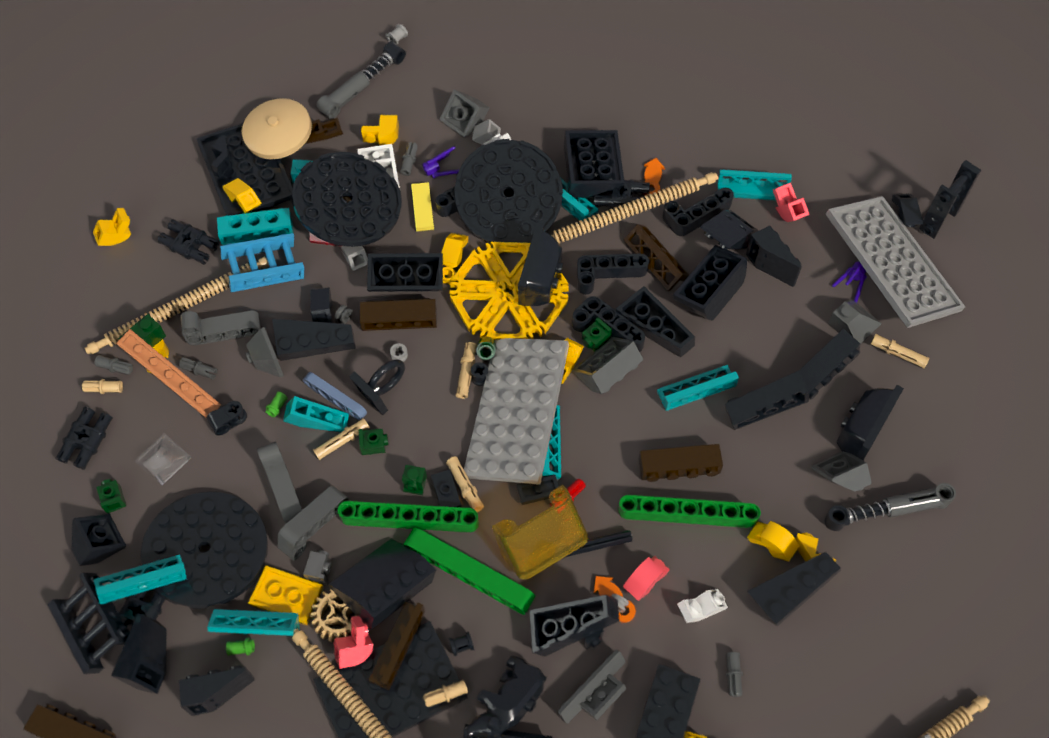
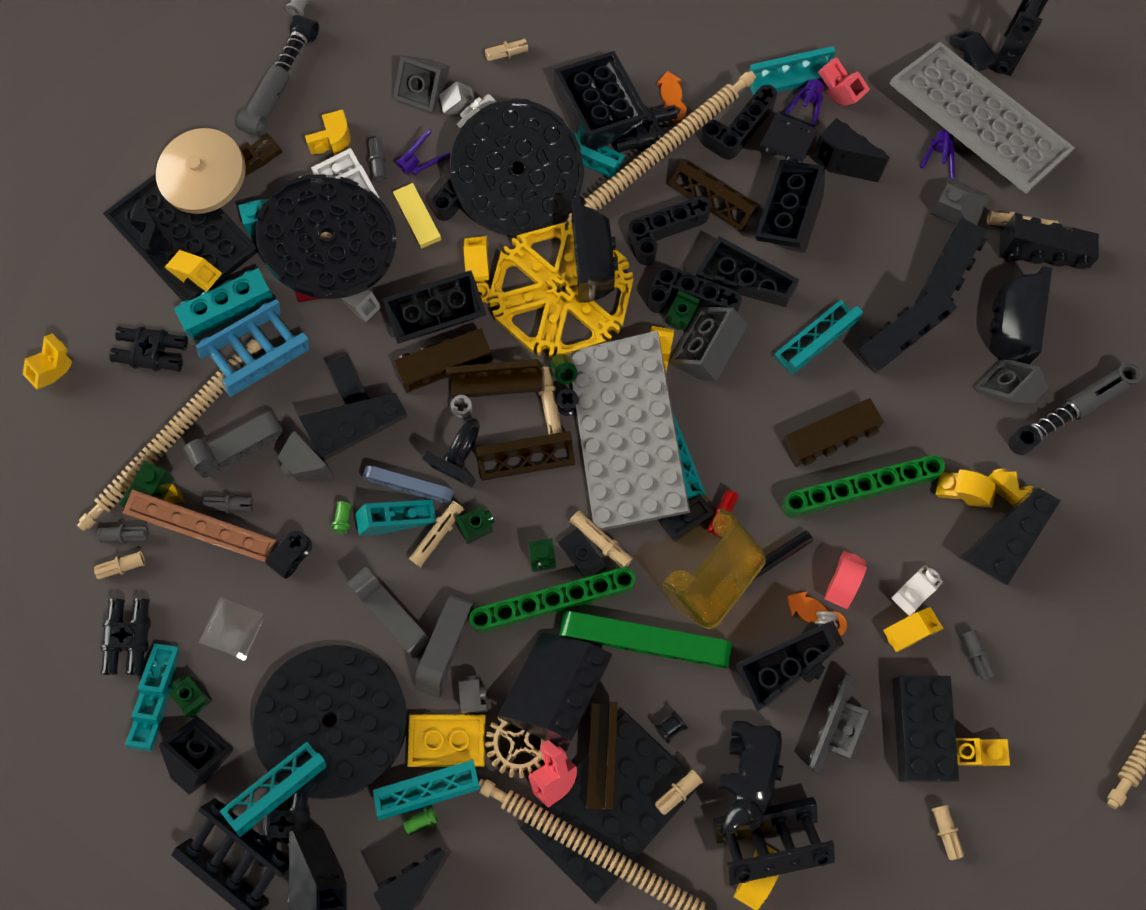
camera: 20 degrees left, 10 degrees up
(84, 489) = (153, 697): none -> teal slope
(343, 314) = (377, 380): dark grey bush -> none
(432, 339) = (497, 378): none -> dark brown fence
(432, 396) = (528, 447): none -> dark brown fence
(547, 109) = (506, 50): none -> tan axle
(686, 633) = (912, 629): none -> yellow slope
(762, 205) = (810, 93): none -> dark purple plant
(914, 372) = (1048, 243): none -> black wedge

